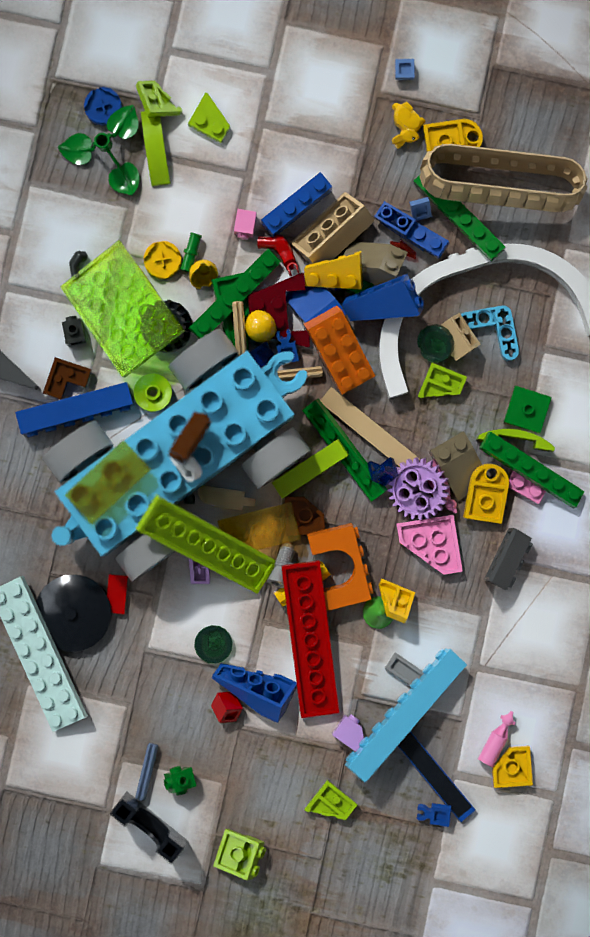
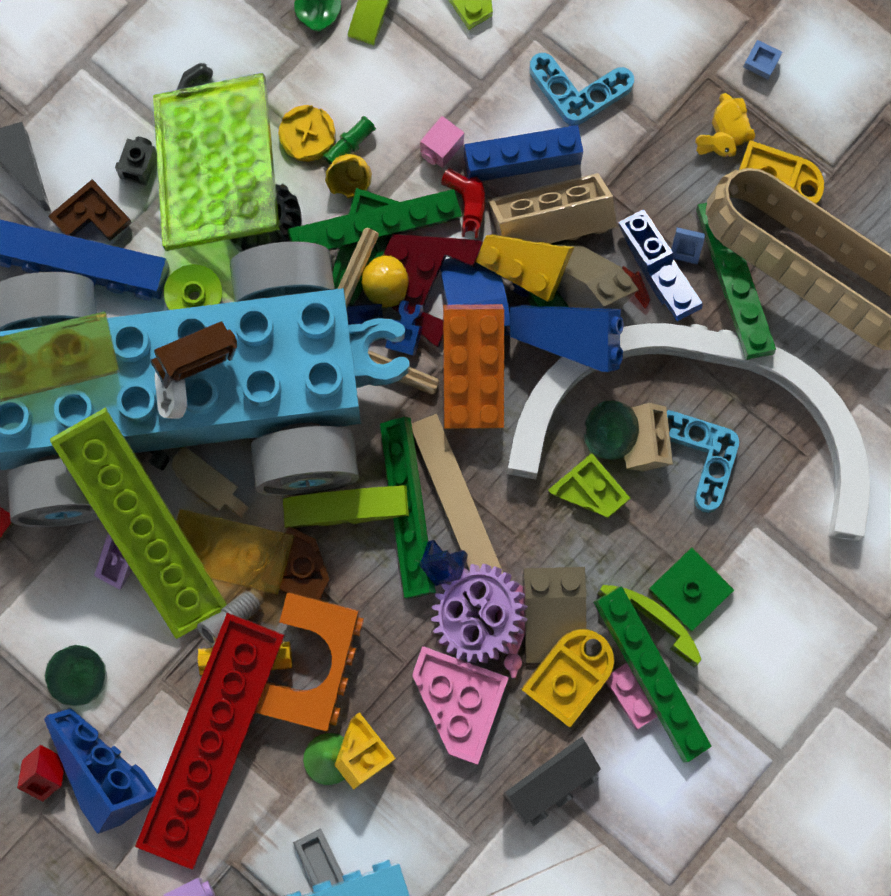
camera: 30 degrees right, 10 degrees down
(305, 153) = (572, 97): none -> medium azure beam

